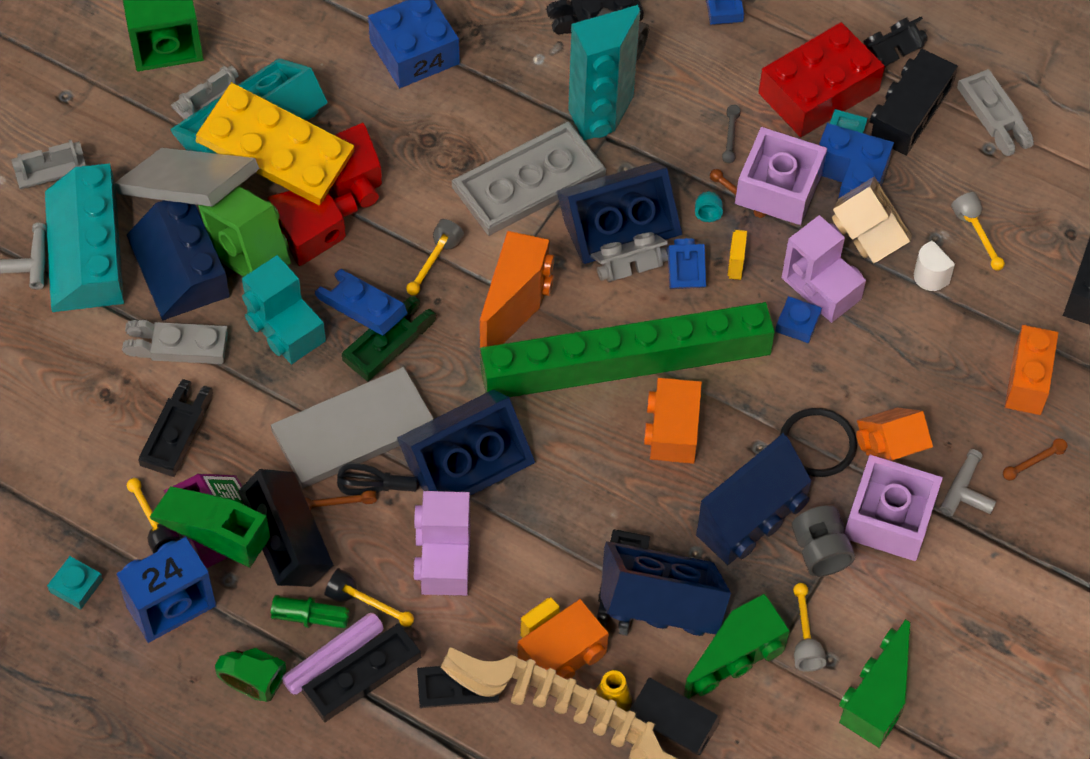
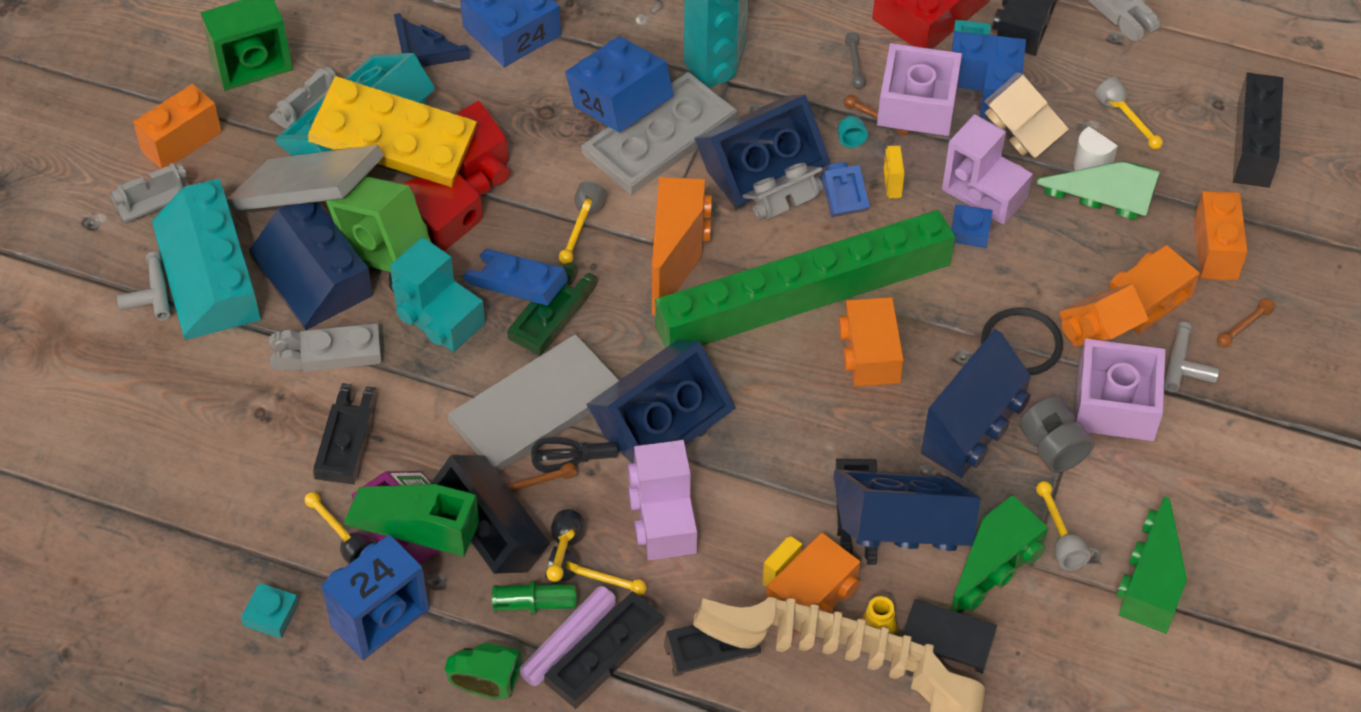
camera: 10 degrees left, 5 degrees down
(84, 103) = (177, 126): none -> orange brick
(330, 56) = (427, 44): none -> dark blue tile
(348, 555) = (565, 536): none -> hinge
(499, 125) = (619, 83): none -> blue brick
(943, 302) = (1116, 184): none -> slope
(956, 410) = (1161, 283): none -> orange brick

